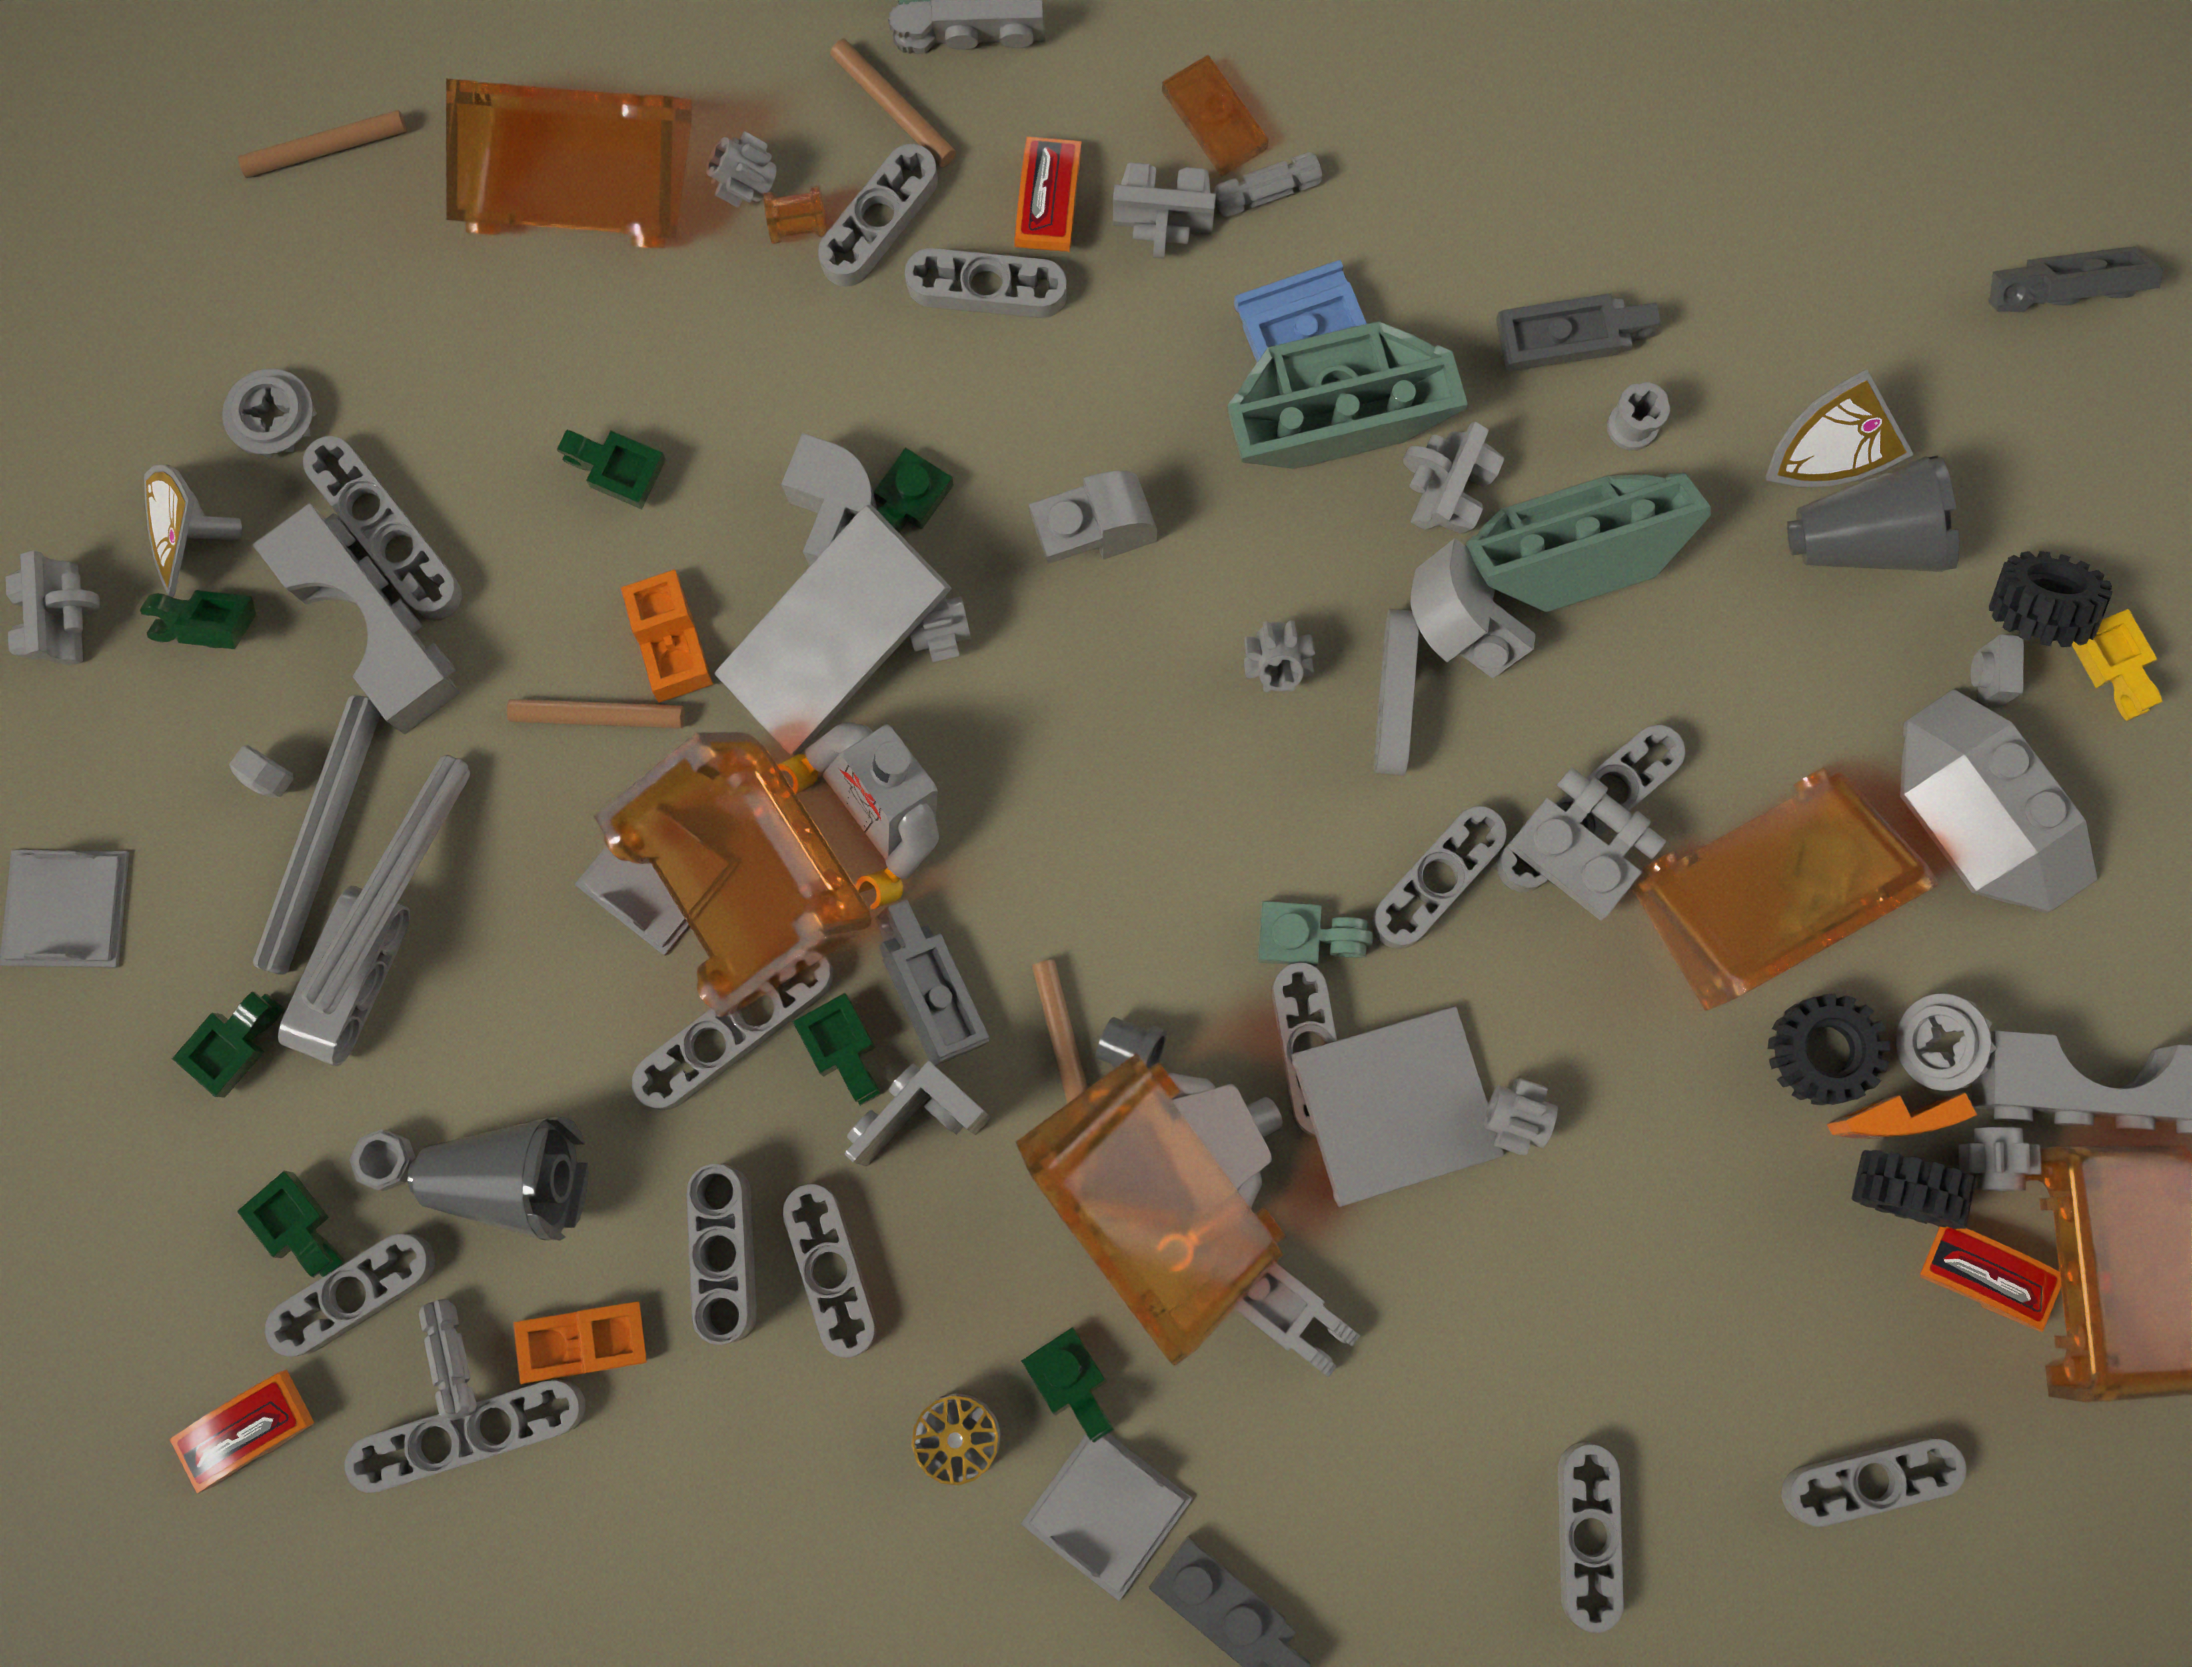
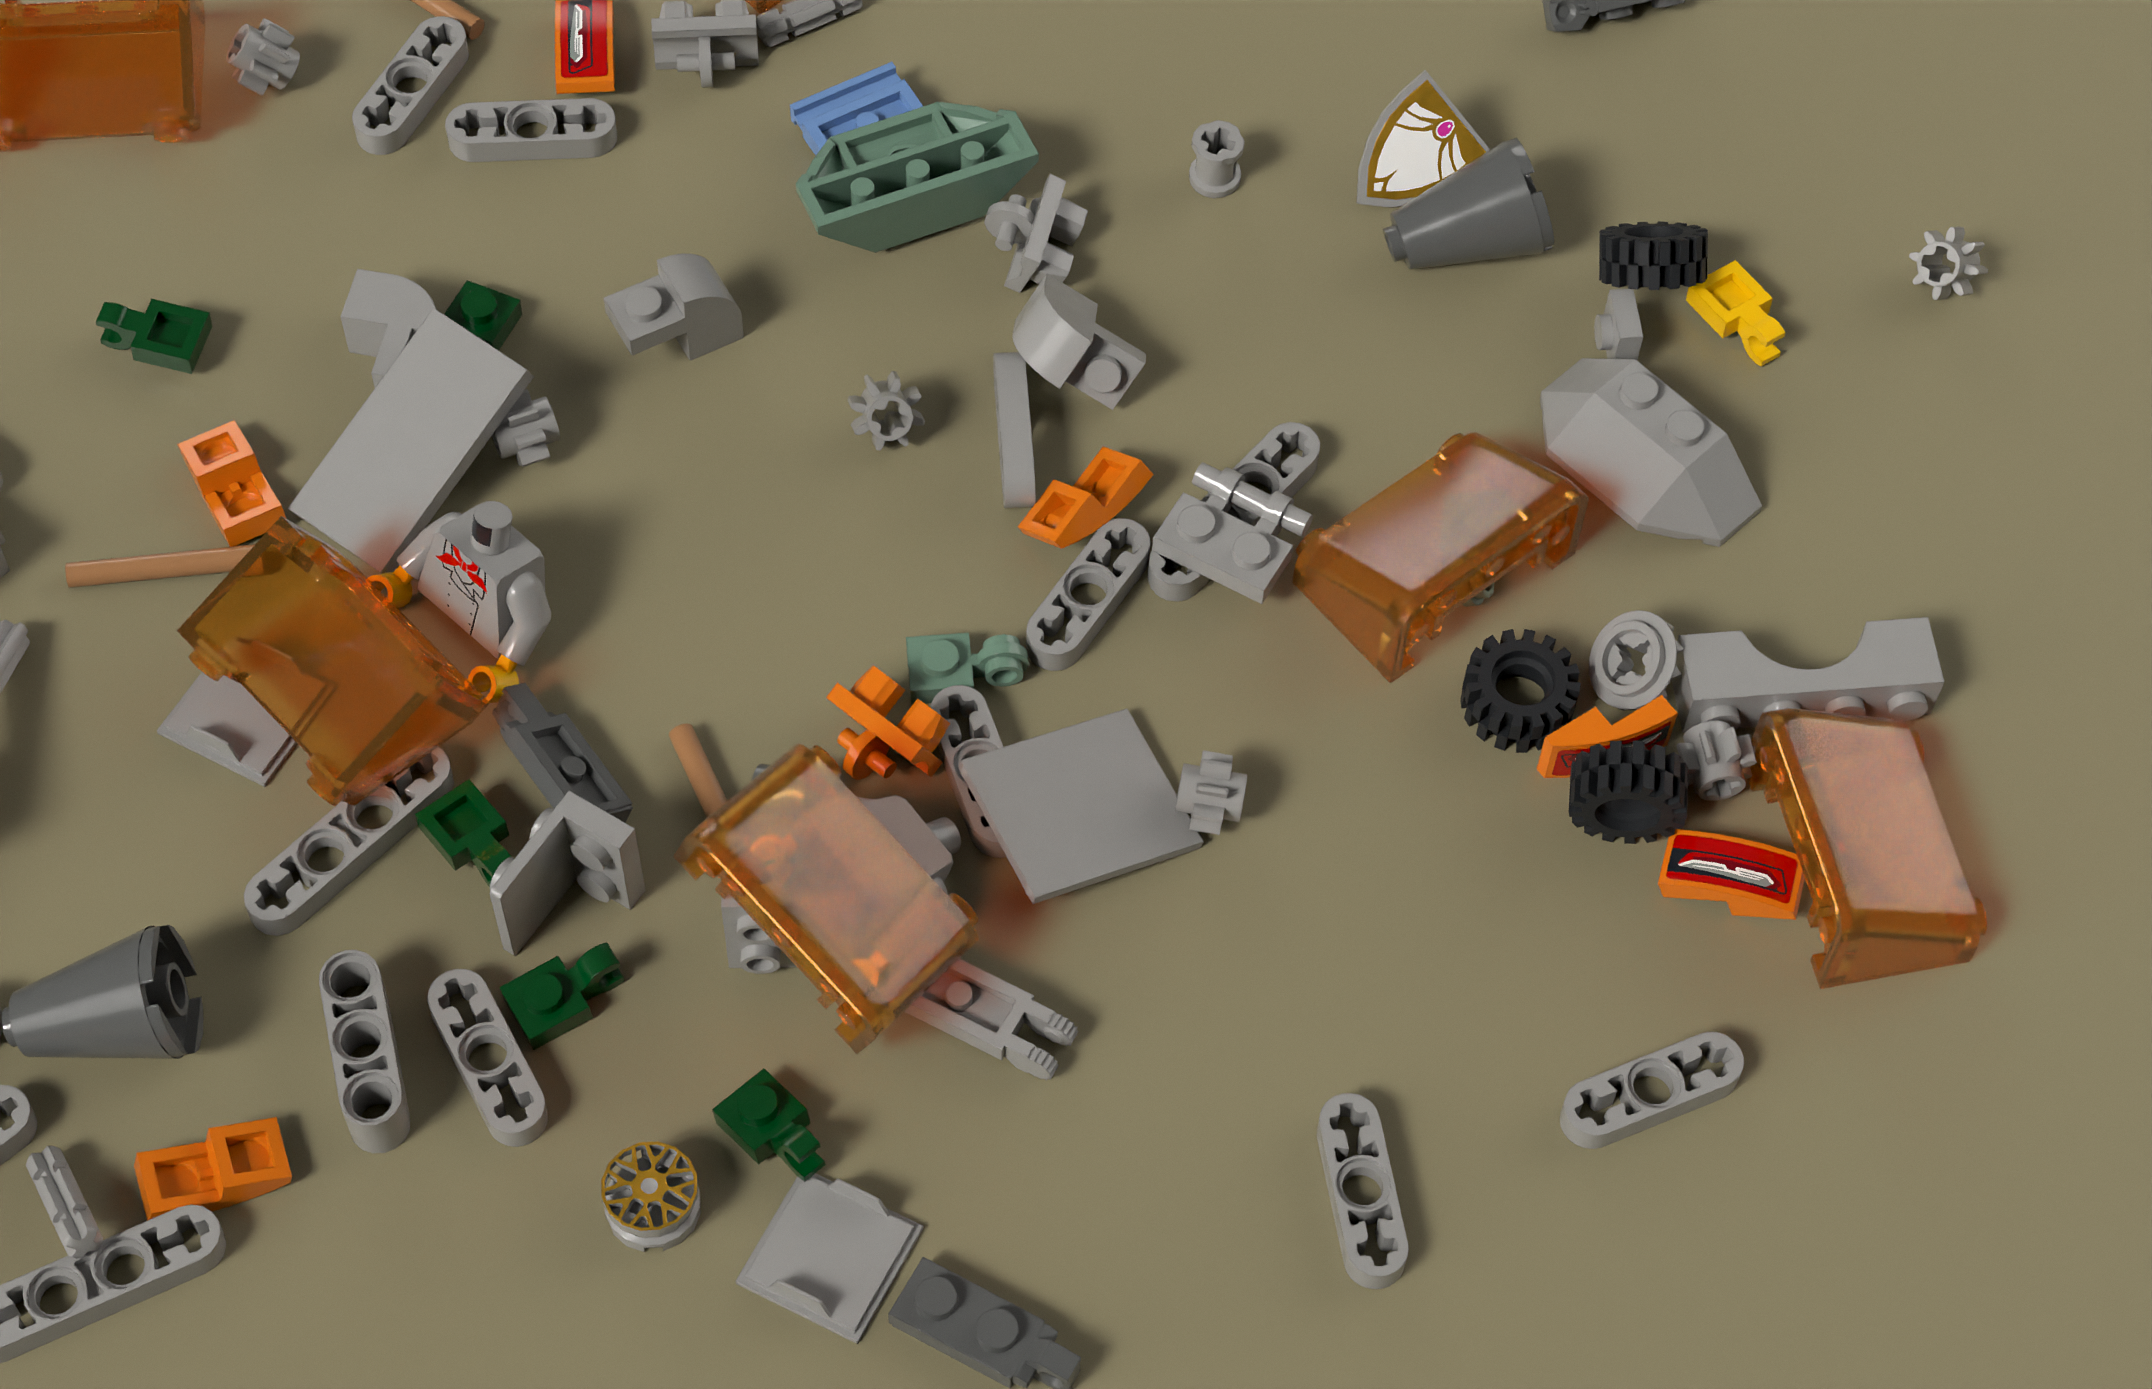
camera: 15 degrees left, 20 degrees down
(795, 214) = (324, 91): clear orange bush -> none
(894, 1220) = (554, 1000): none -> dark green plate
(1221, 1004) = (912, 738): none -> orange hips
(1458, 781) = (1073, 512): none -> orange slope
(1572, 330) = (1138, 96): dark grey hinge -> none
(1588, 538) = (1190, 268): sand green wedge -> none

